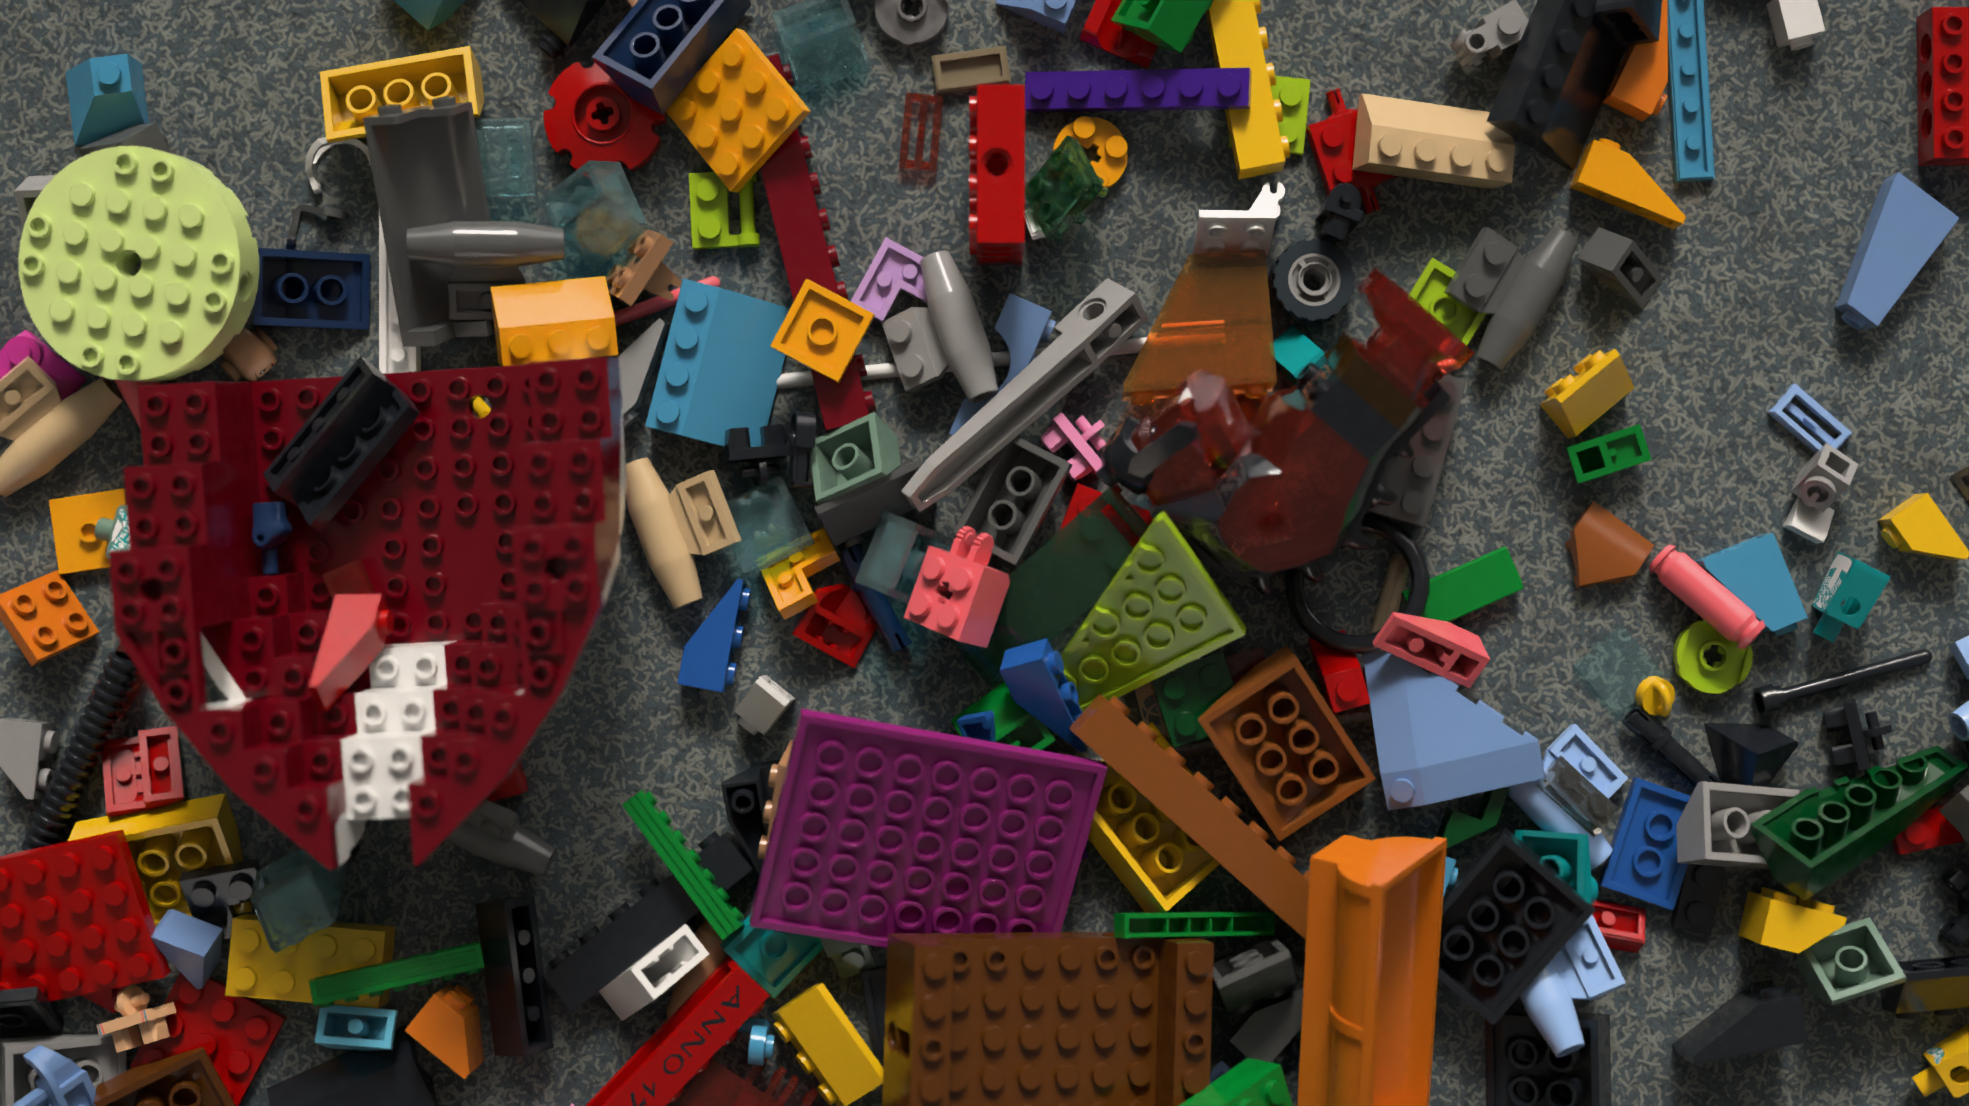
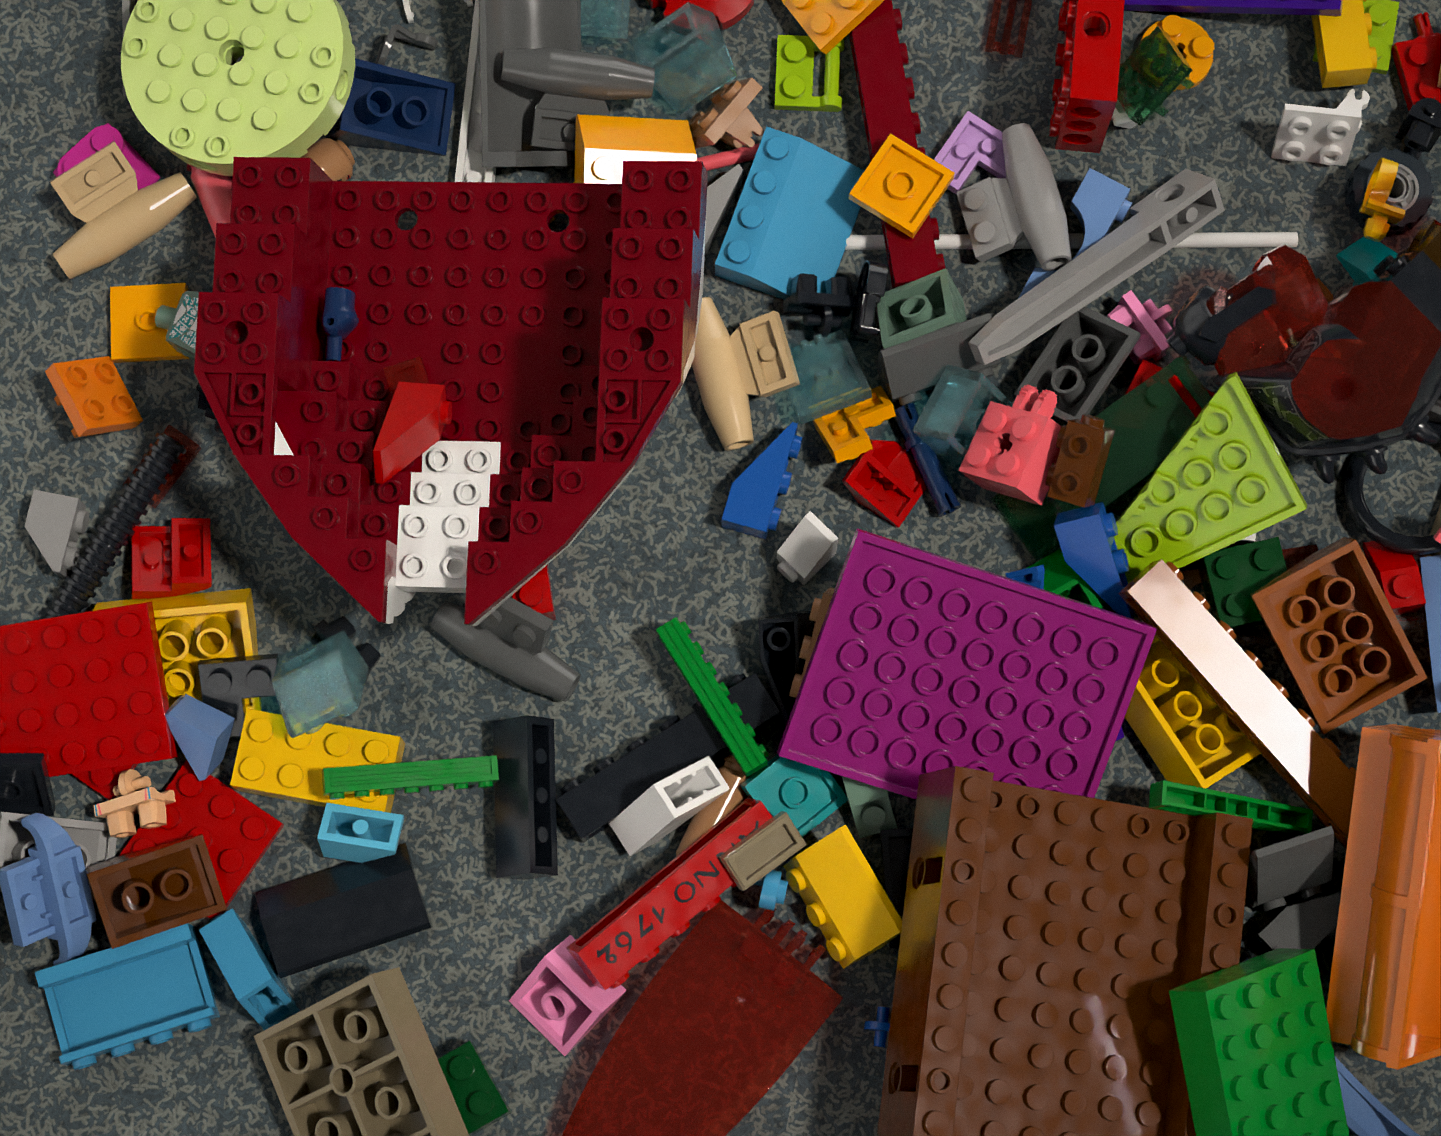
camera: 10 degrees right, 10 degrees down
(341, 443) = (418, 241): black slope -> none
(451, 1029) = (455, 839): orange slope -> none
(745, 1014) = (762, 850): none -> dark tan tile
(1020, 606) = (1081, 461): none -> reddish brown brick
(1212, 322) = (1291, 202): clear orange slope -> none
(1296, 299) = (1375, 201): none -> yellow piece

